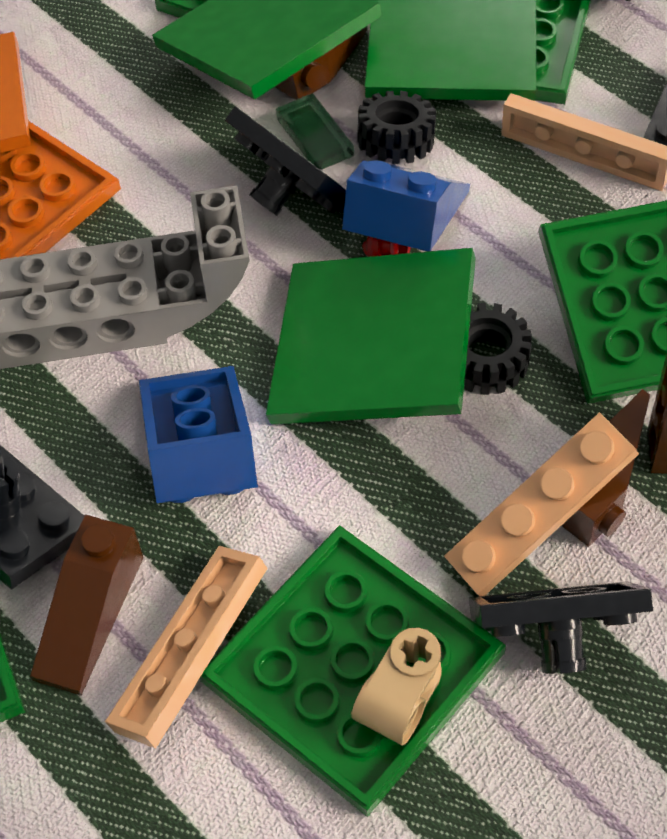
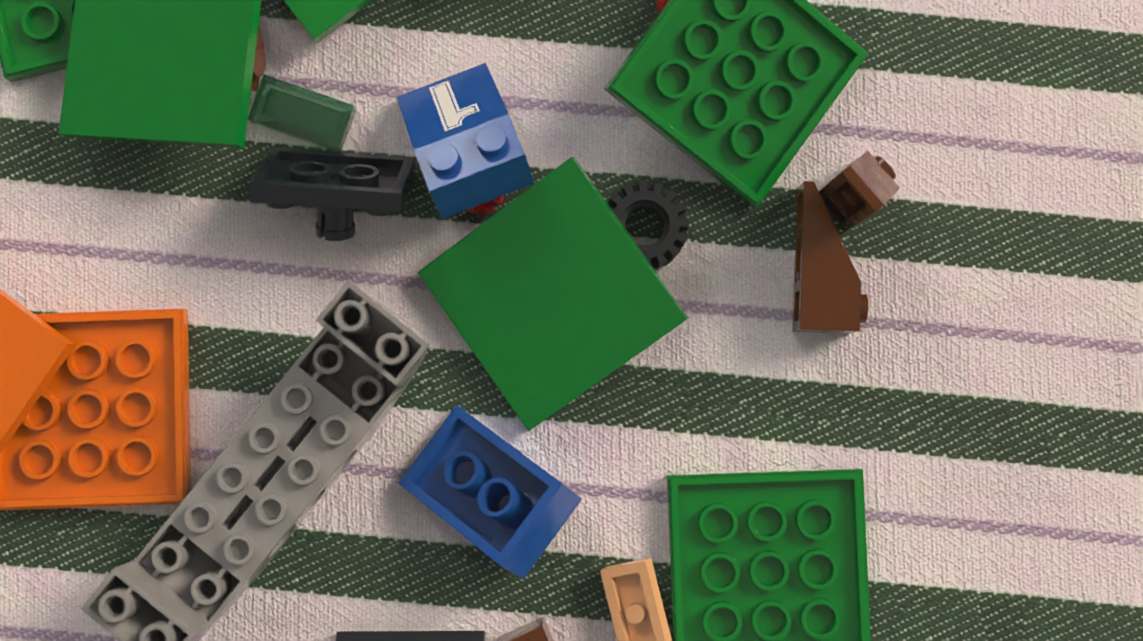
camera: 45 degrees left, 30 degrees up
(396, 127) = (365, 35): black tyre -> none
(397, 693) = (833, 581): tan piece -> none
(541, 504) = (813, 347): light nougat plate -> none
(560, 616) = (888, 422): black plate -> none

